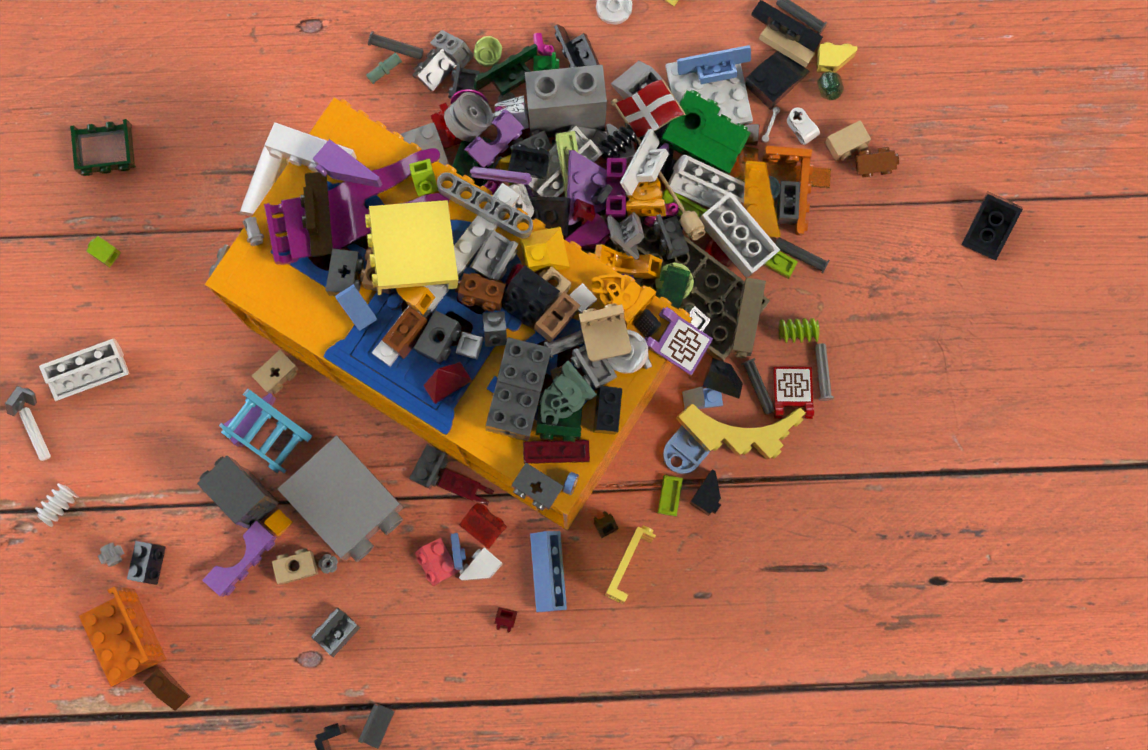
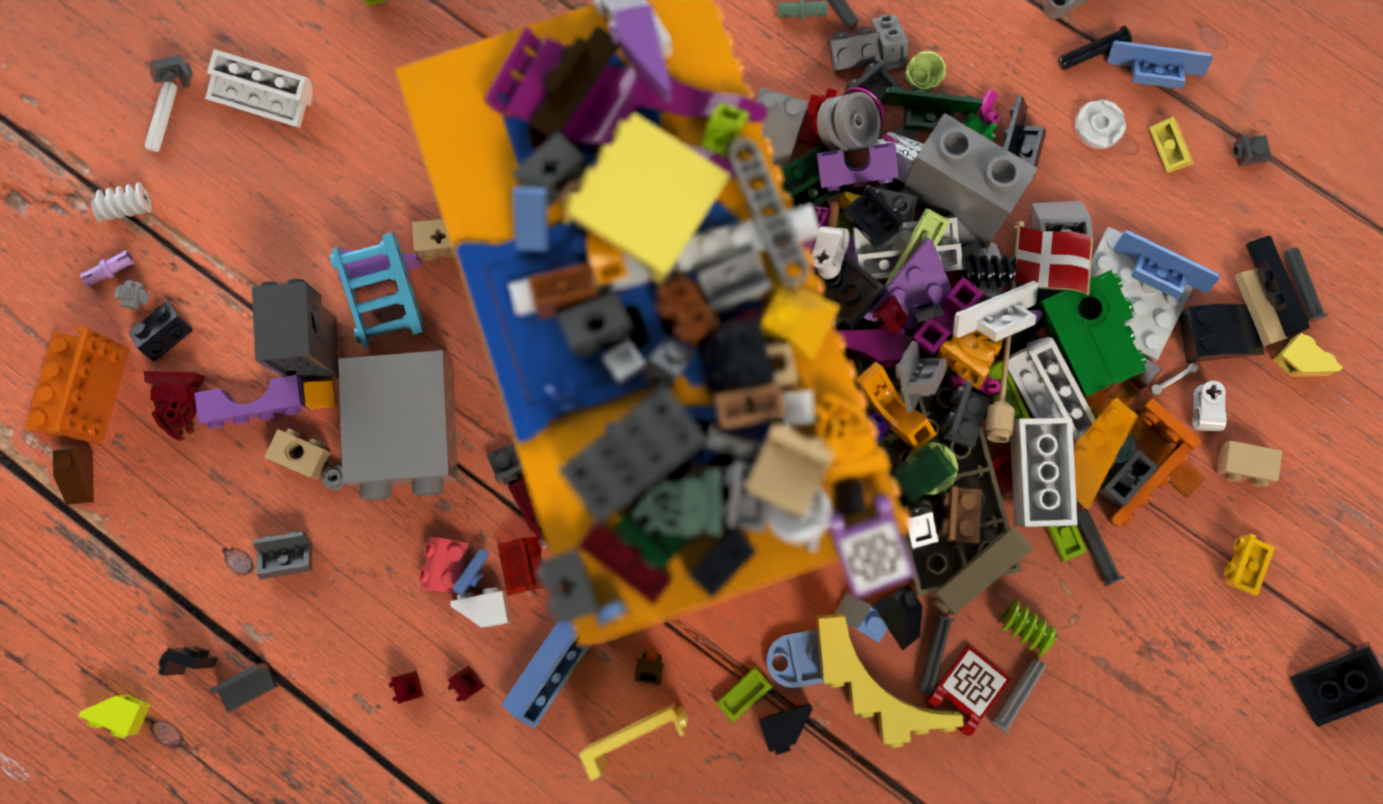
camera: 45 degrees right, 0 degrees up
(80, 551) = (107, 268): none -> lavender pin
(189, 593) = (174, 400): none -> dark red piece
(254, 236) = (491, 49): light grey pin -> none
(446, 381) = (565, 382): dark red slope -> none
(472, 648) = (406, 687): none -> dark red tile
(501, 175) = (833, 209): medium lavender axle -> none
(713, 294) = (962, 516): none -> medium nougat bracket
(830, 85) = (1276, 387): clear green head -> none
(881, 161) = (1271, 515): dark orange brick -> none
(891, 198) = (1248, 564): none -> yellow bracket

